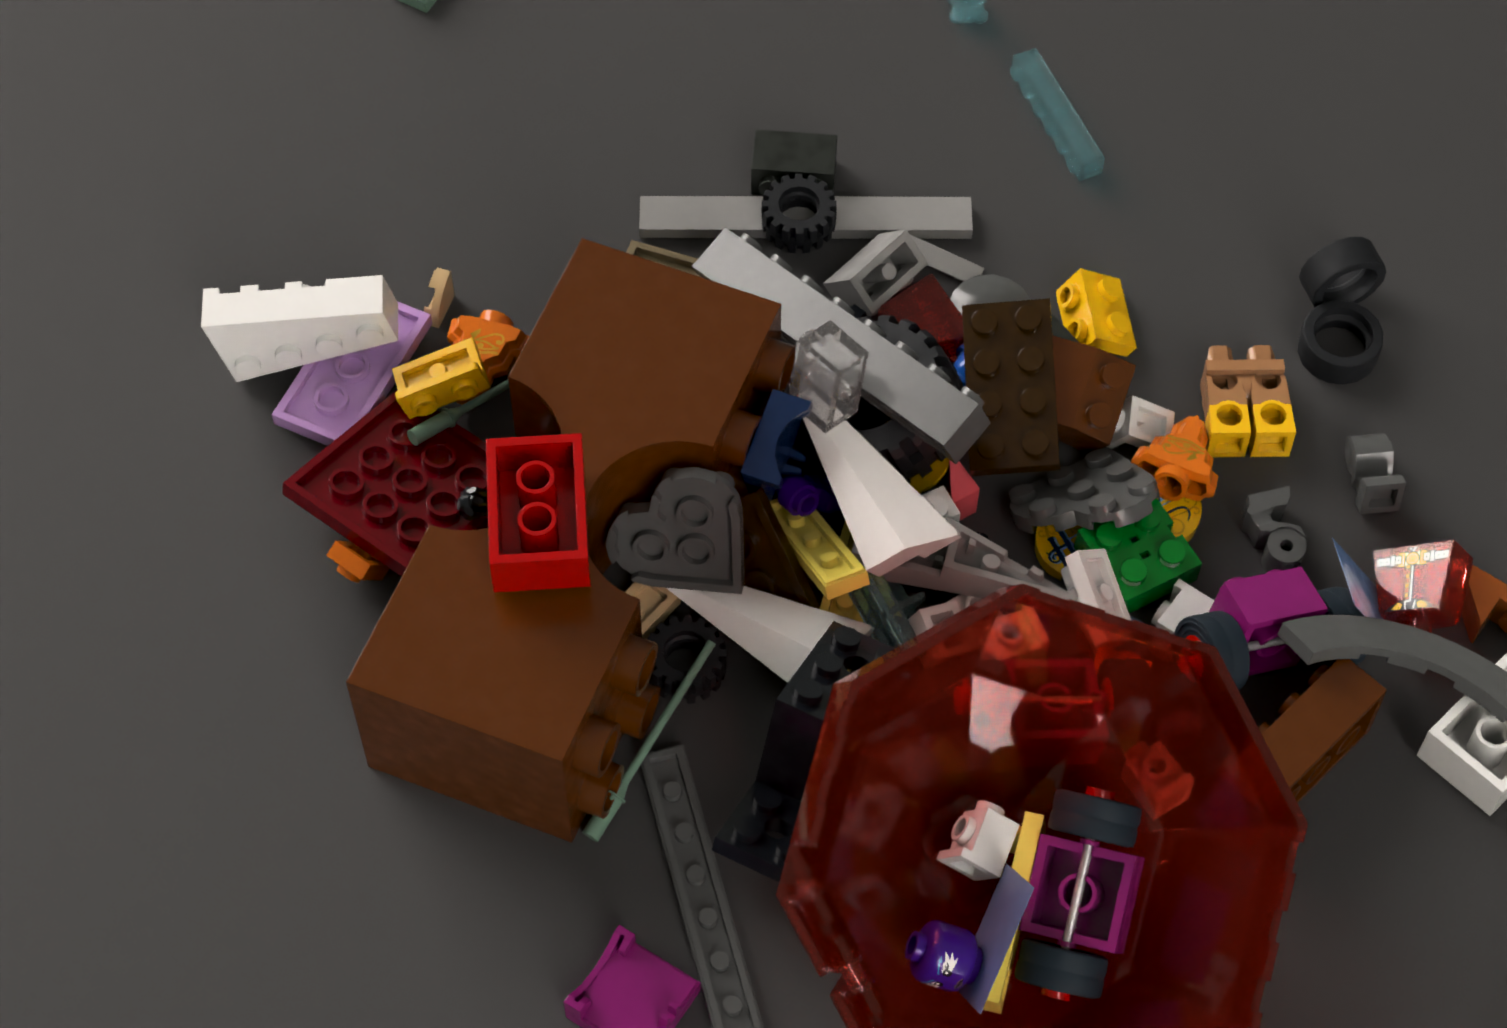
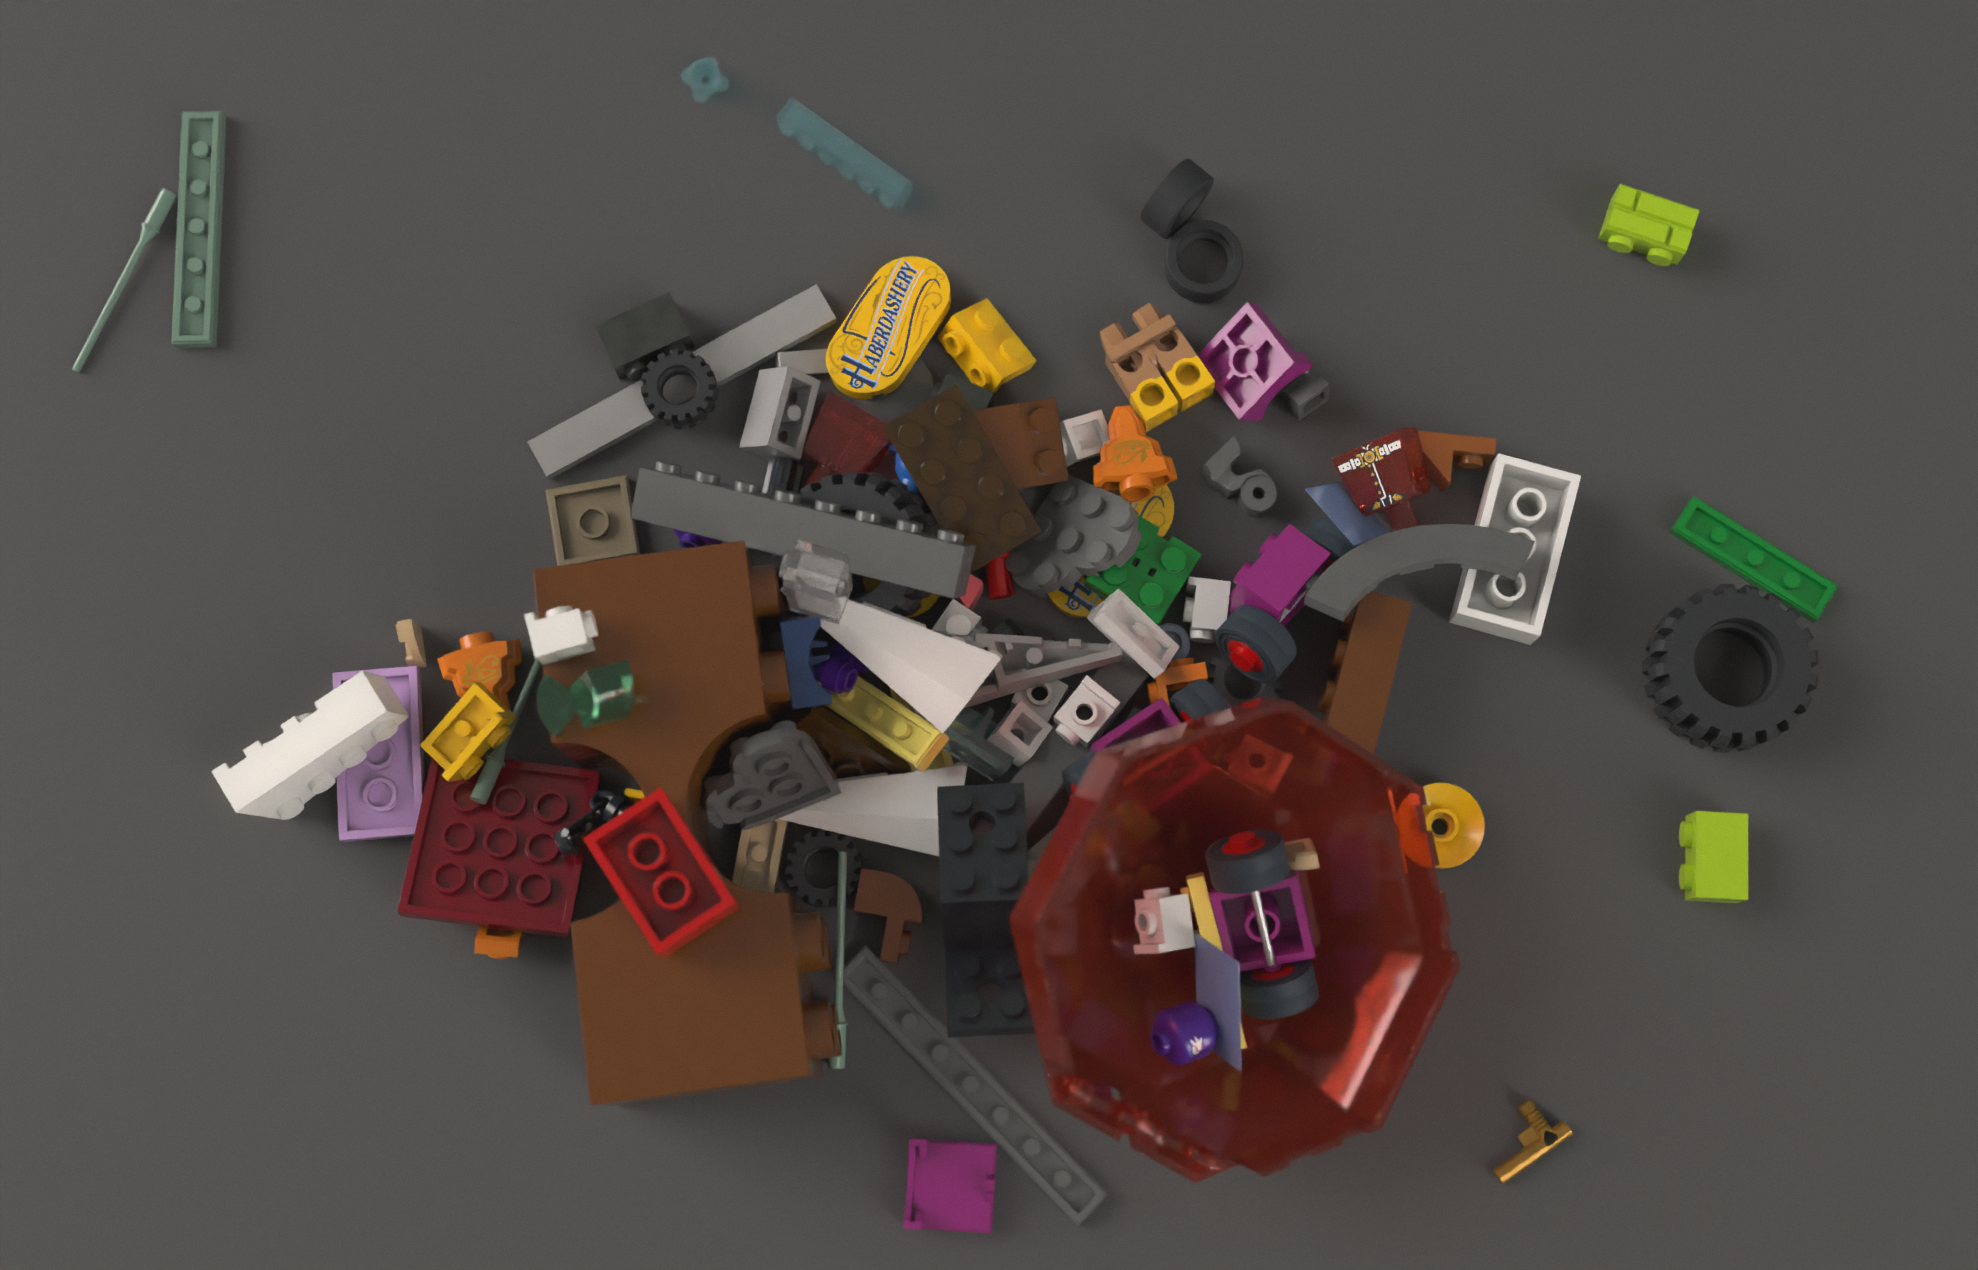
camera: 25 degrees left, 20 degrees up
(532, 346) = (555, 705): none -> clear green tile
(573, 290) = (561, 633): none -> white brick
(580, 348) = (604, 694): none -> clear green brick
(732, 721) = (892, 899): none -> reddish brown brick
(997, 499) = (998, 579): none -> red pin
(1015, 256) = (888, 327): none -> yellow tile
(1149, 849) = (1301, 854): none -> tan tile
(1331, 918) = (1463, 823): none -> yellow dish
(1340, 435) = (1251, 362): none -> magenta piece

